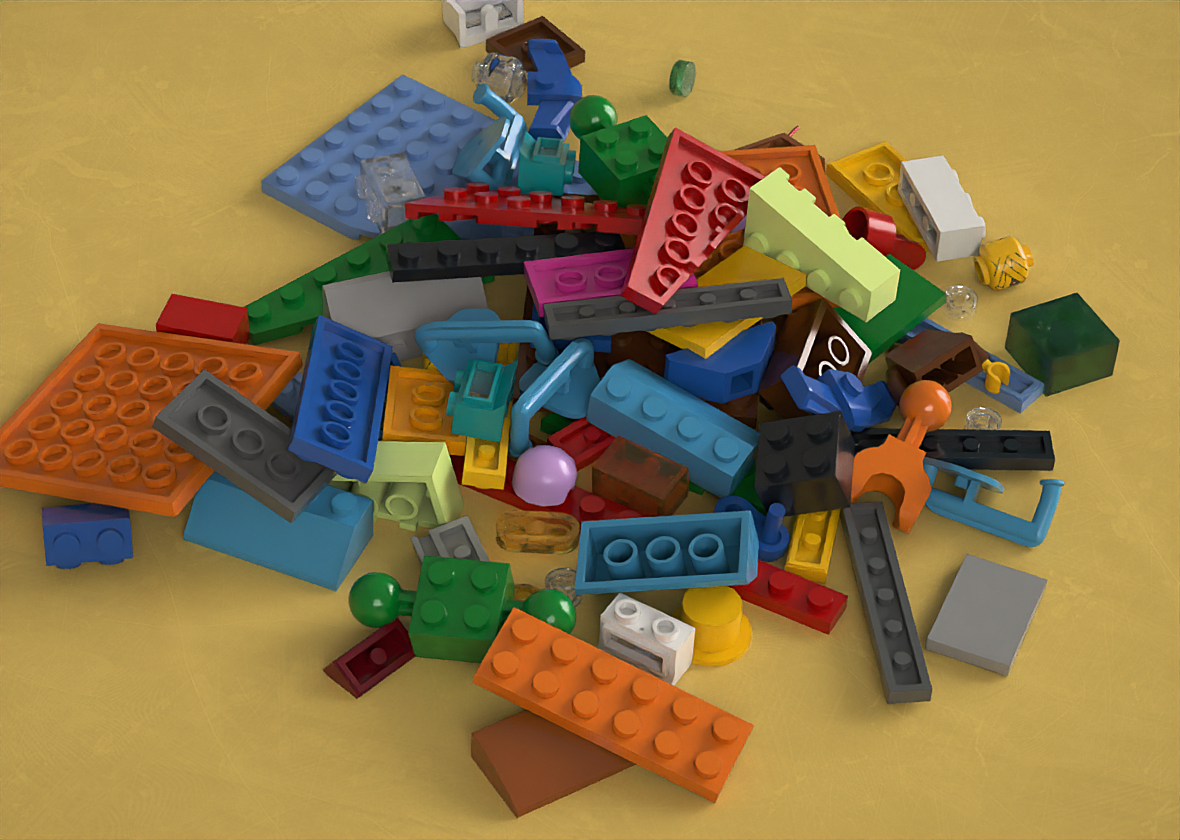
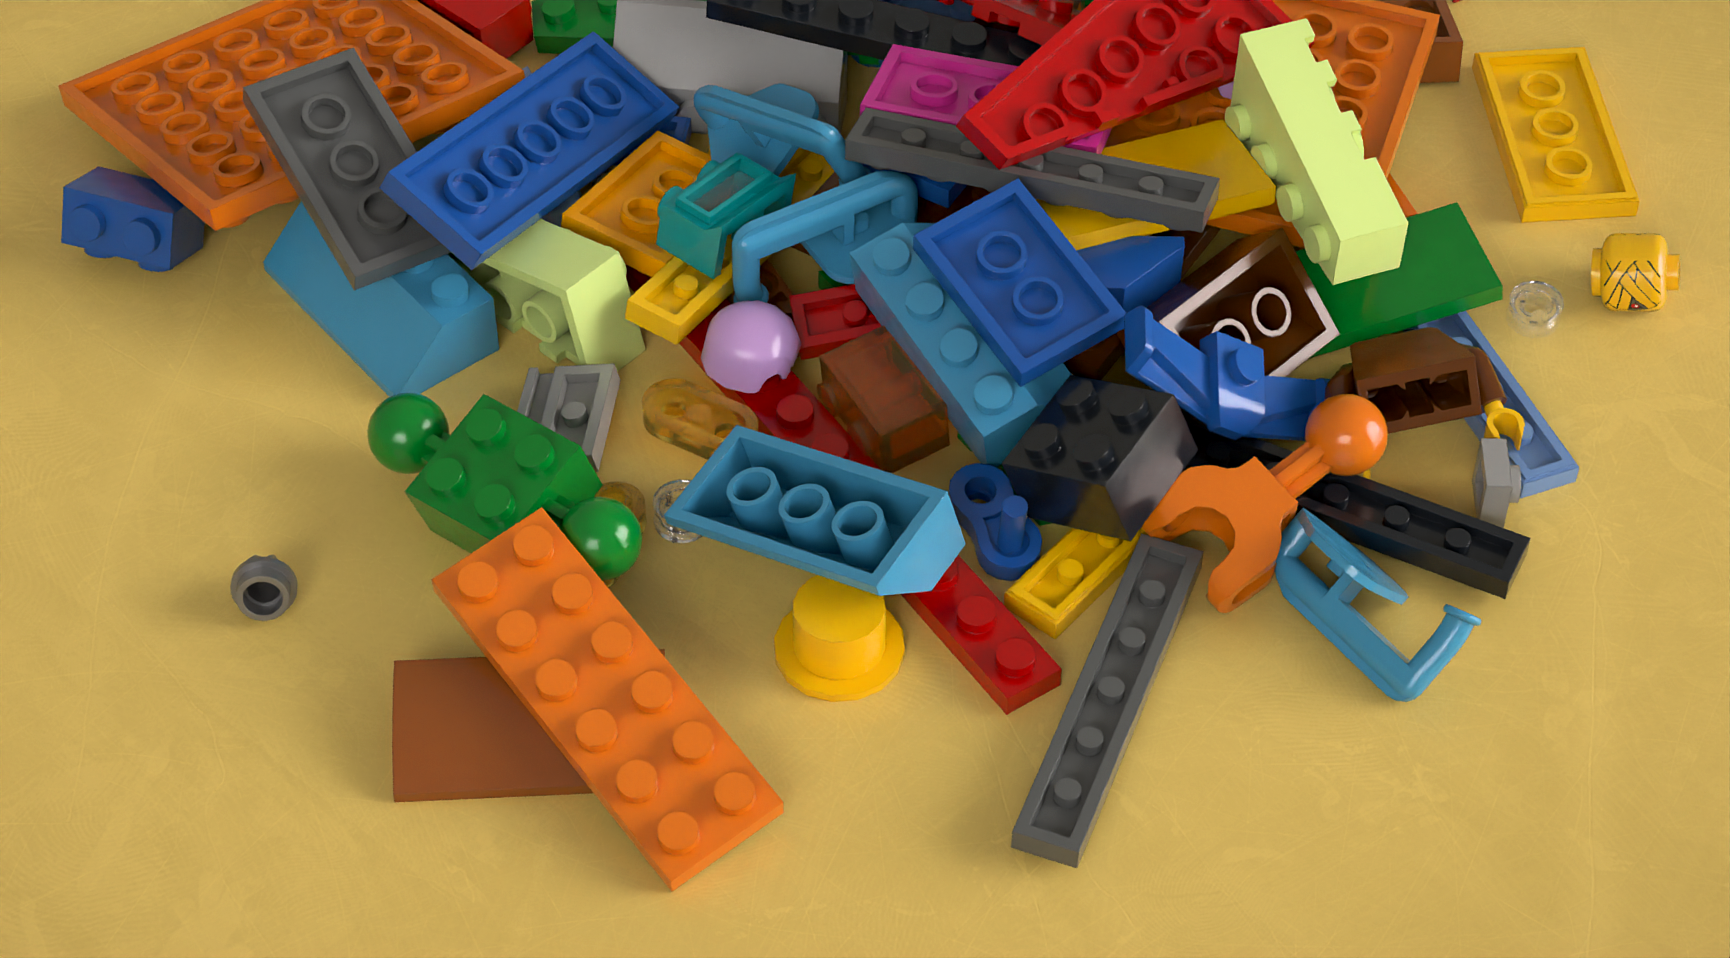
camera: 30 degrees right, 5 degrees up
(349, 724) = (263, 587): none -> flat silver plate
(372, 659) = (361, 513): dark red slope -> none
(646, 638) = (723, 627): white window -> none
(706, 377) = (1019, 282): none -> blue plate
(881, 233) = (1451, 169): red piece -> none
(940, 208) = (1587, 163): white brick -> none
(983, 417) = (1448, 482): clear bush -> none
(986, 614) = (1251, 774): light grey tile -> none
(1009, 405) = (1495, 481): none -> light grey plate
(1062, 343) = (1640, 418): clear green brick -> none

